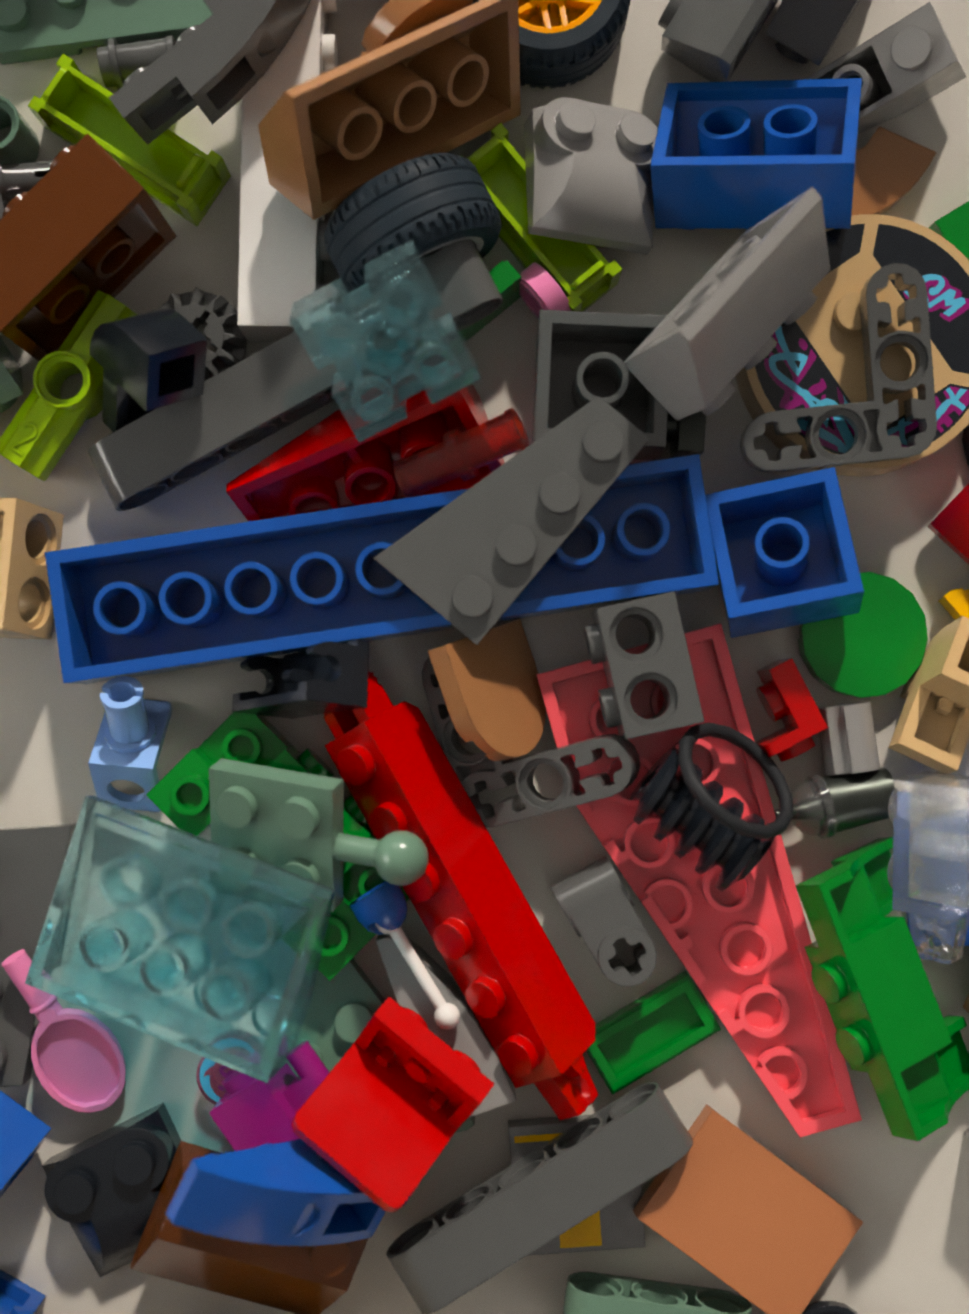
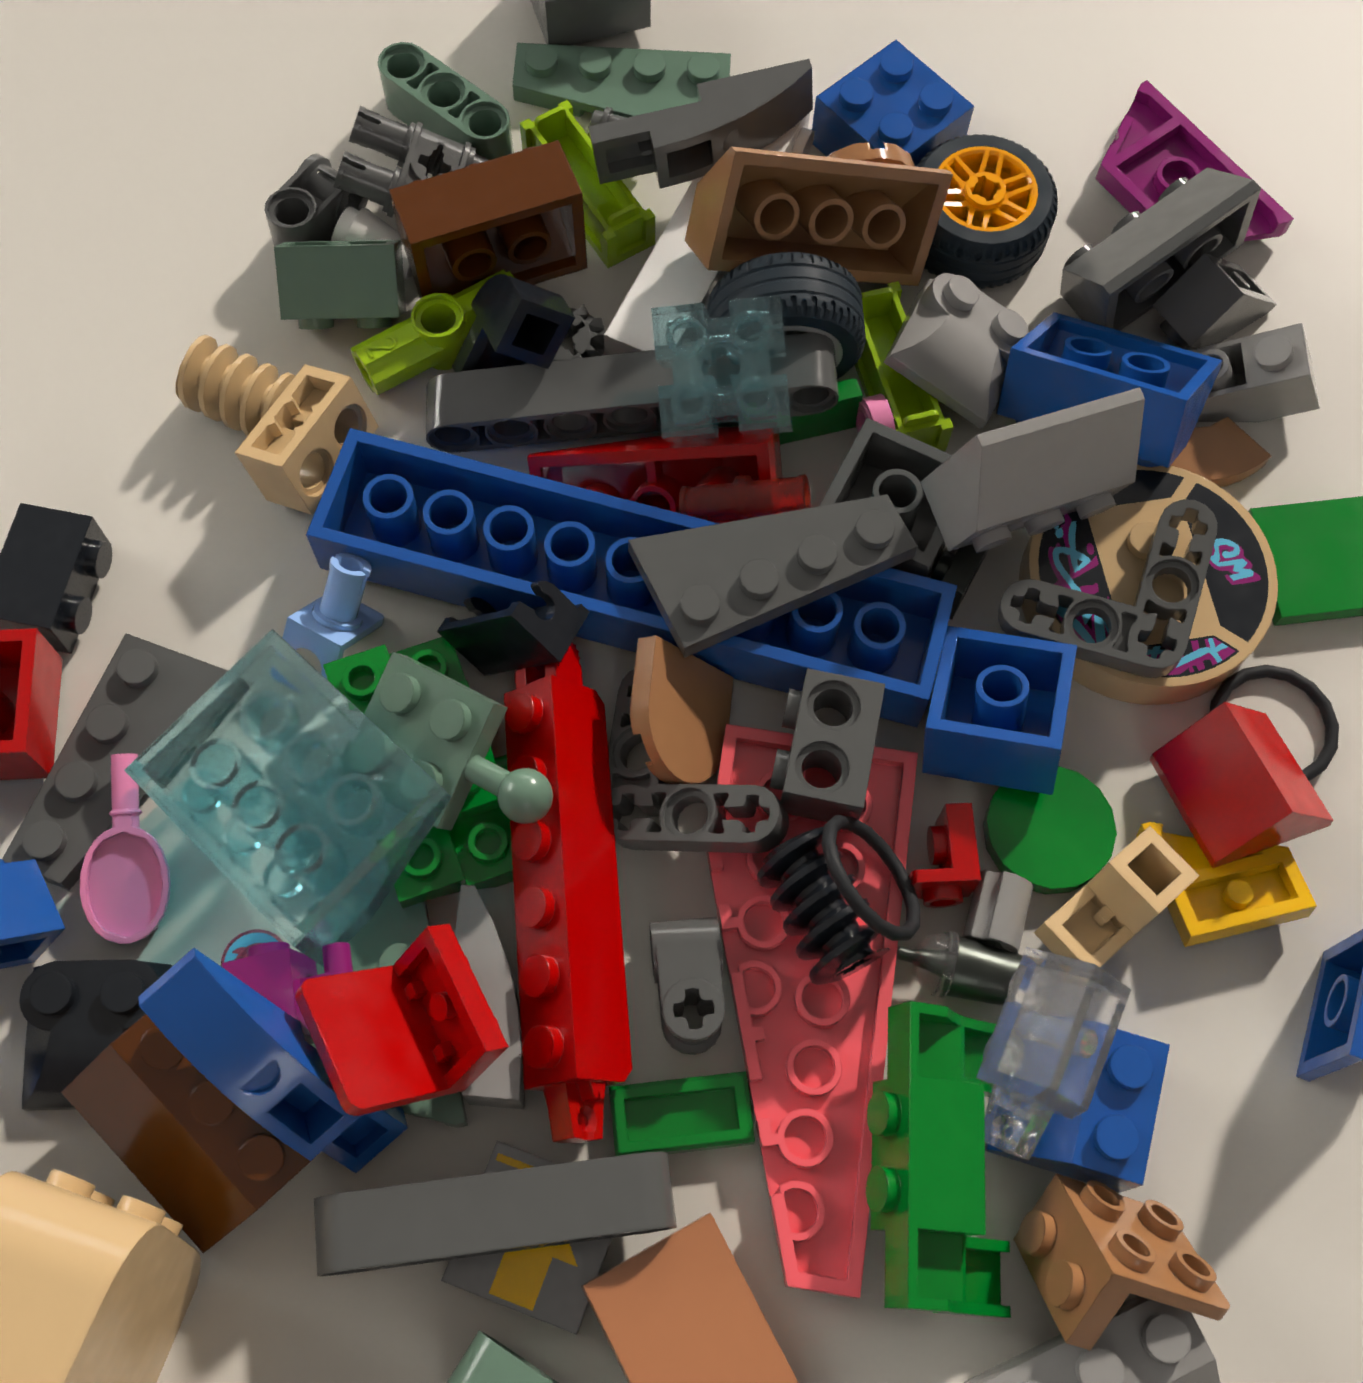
camera: 20 degrees right, 20 degrees down
(383, 912) = (482, 854): hinge -> none

